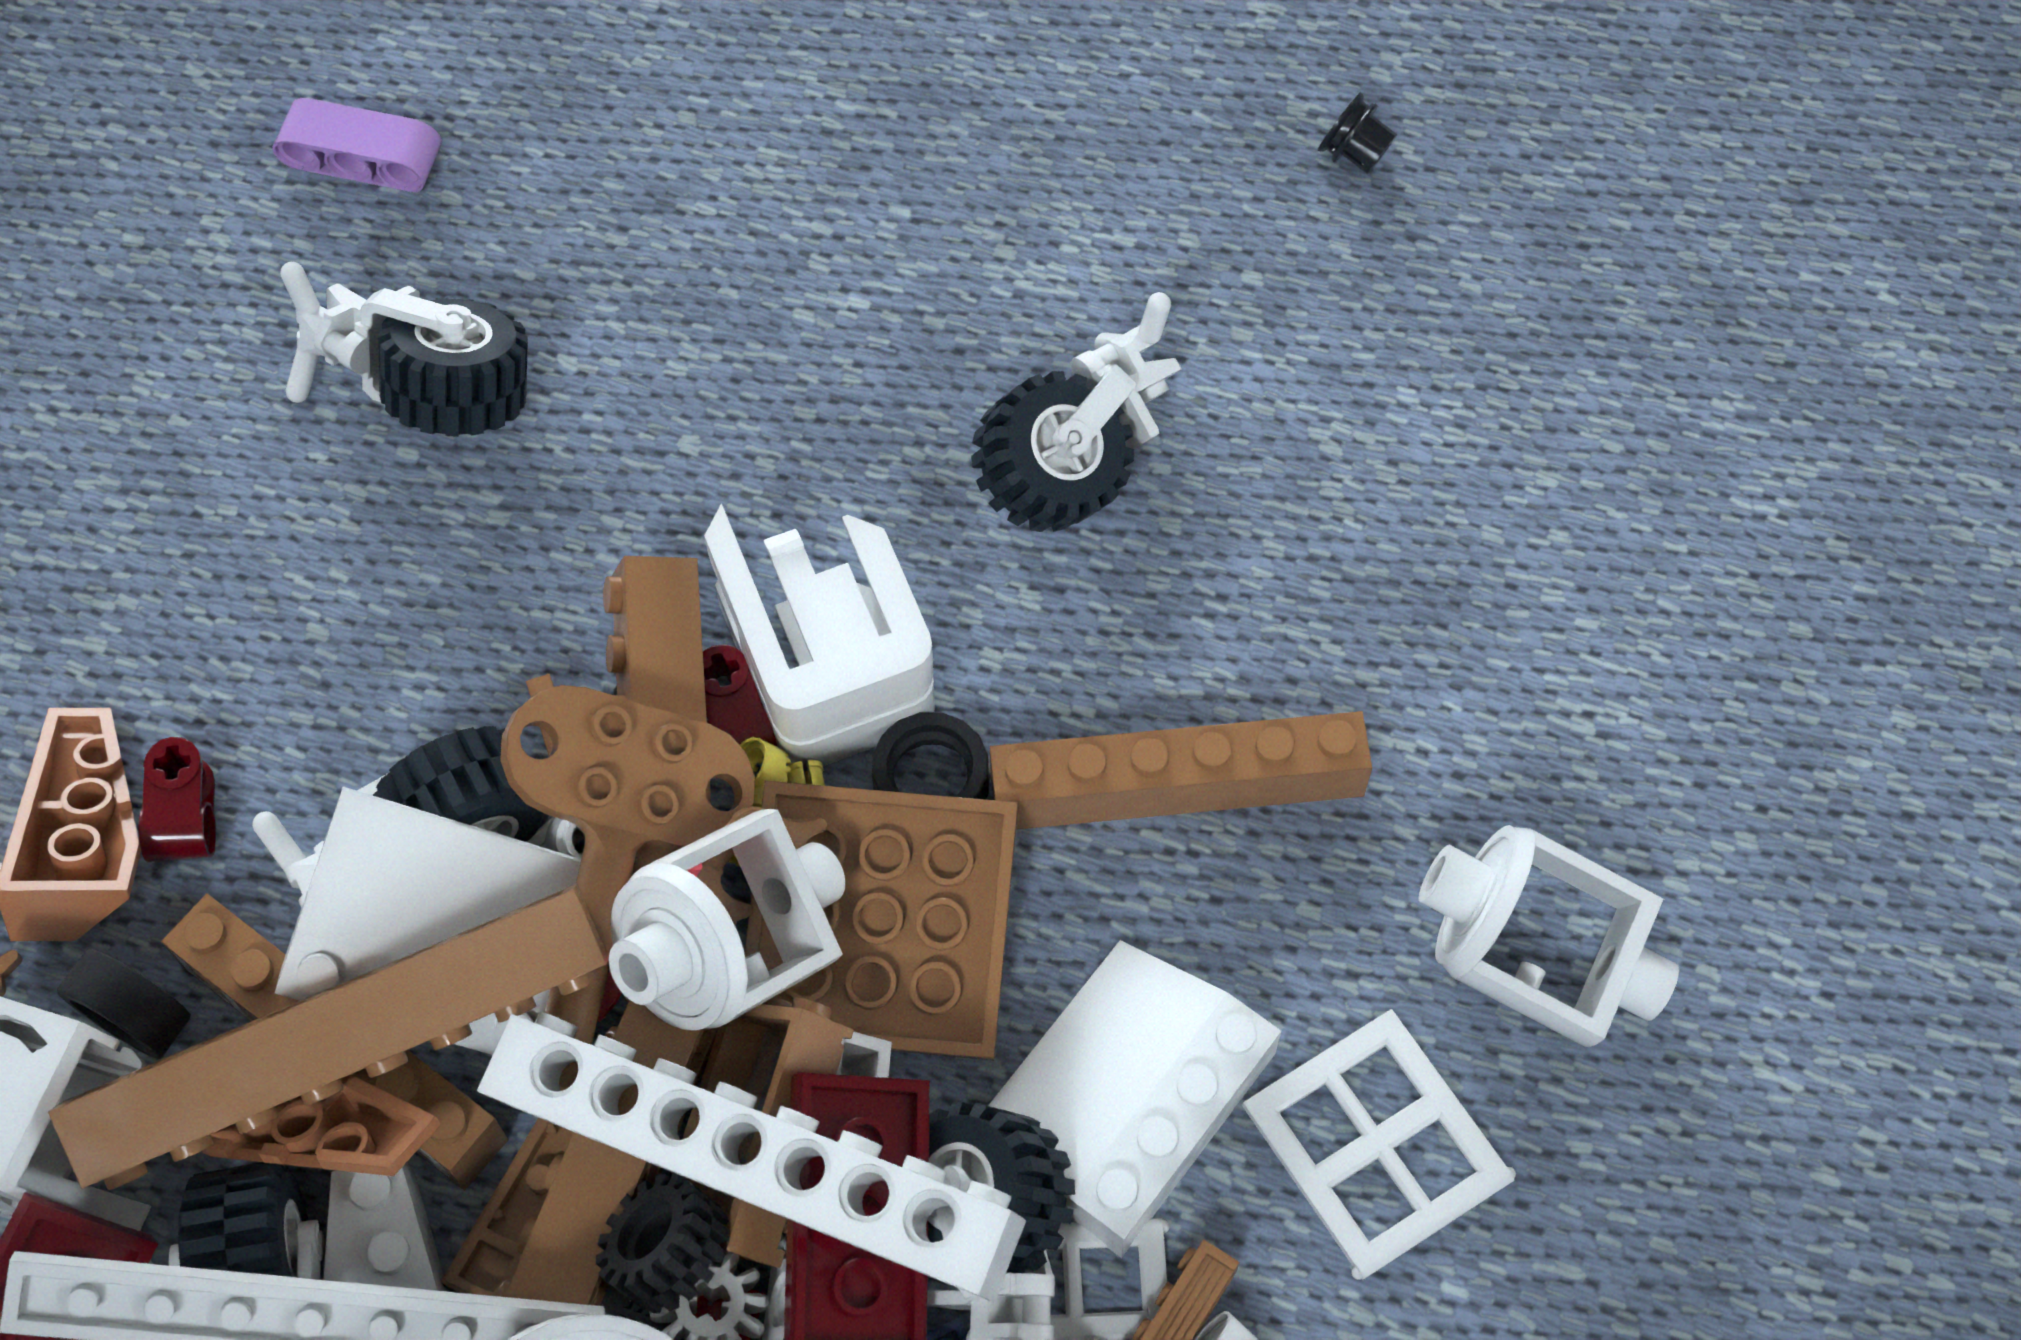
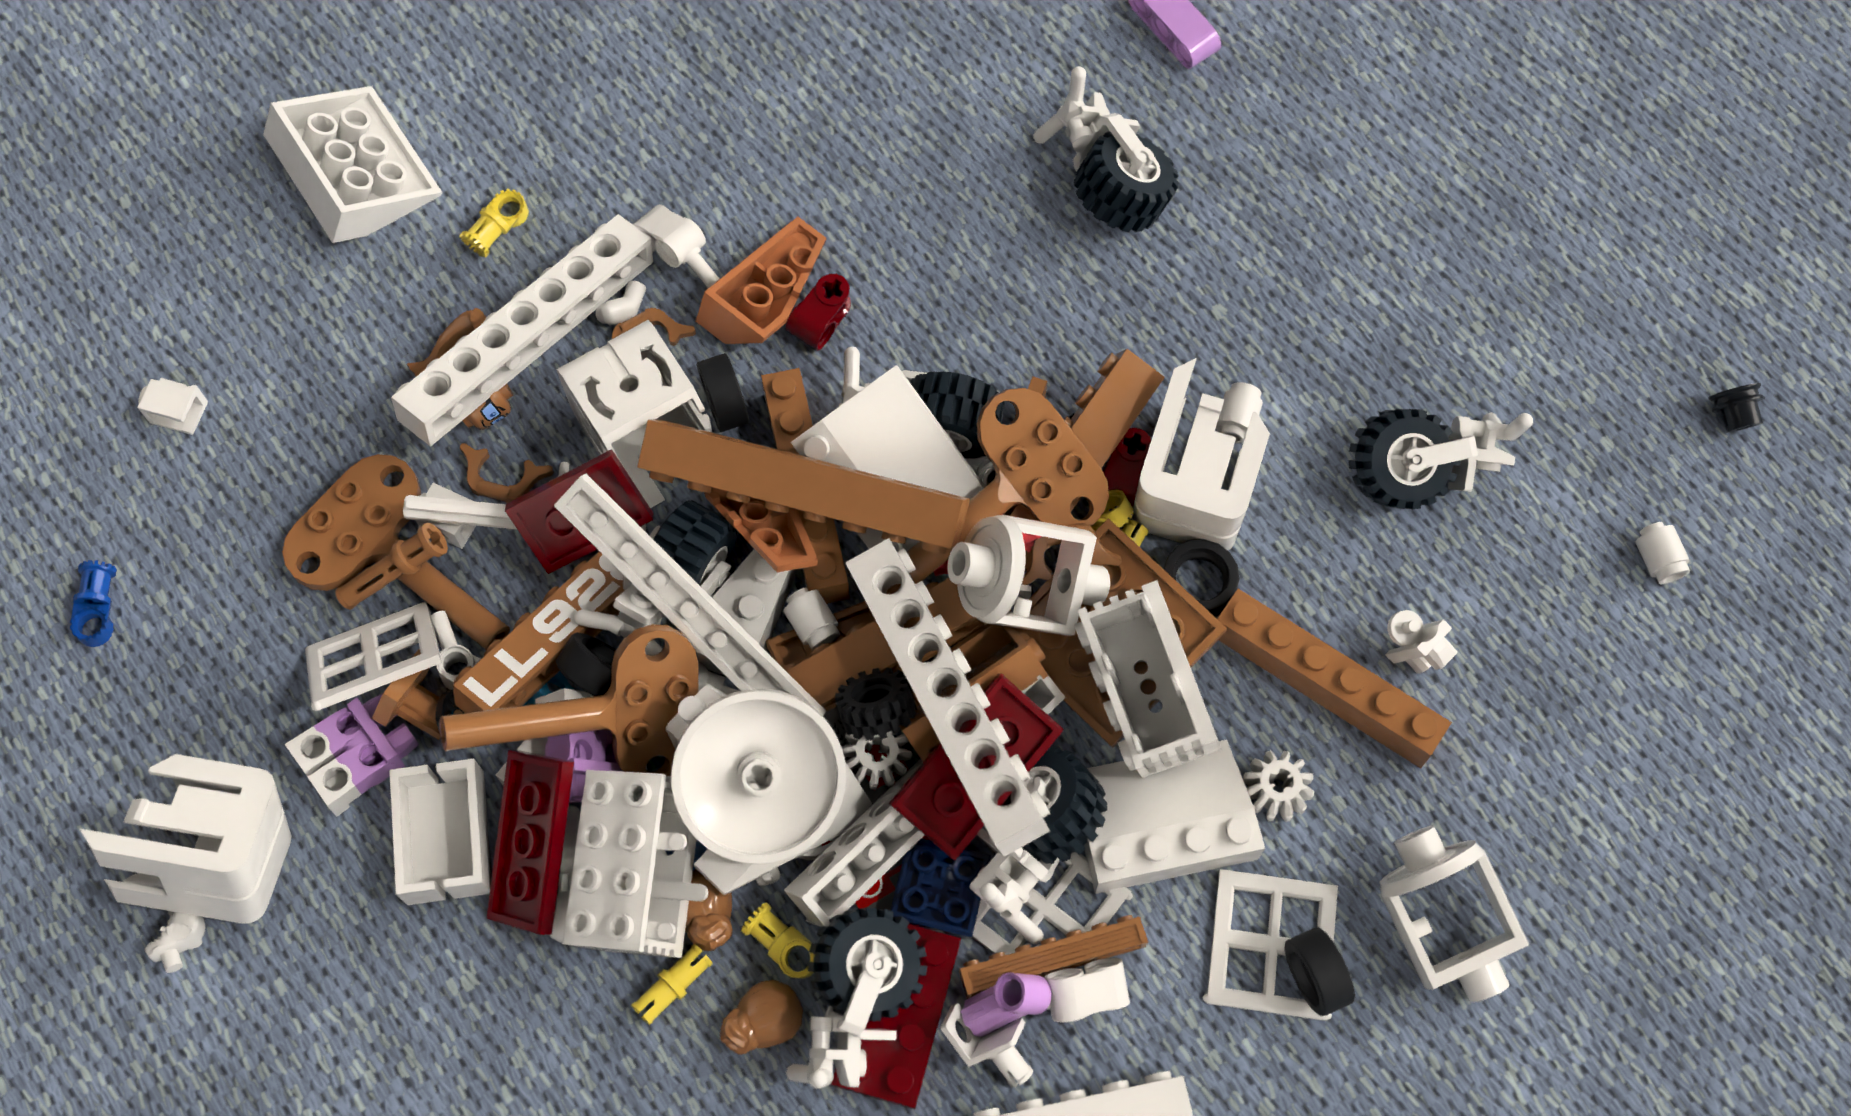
camera: 40 degrees right, 5 degrees up
(481, 1202) = (811, 618): none -> white brick
(818, 531) = (1237, 410): none -> white brick
(935, 878) = (1144, 632): none -> white piece
(1237, 924) = (1295, 785): none -> white gear
(1248, 648) = (1419, 643): none -> white hips
(1415, 350) = (1663, 552): none -> white brick
(1466, 1126) = (1319, 971): none -> black tyre

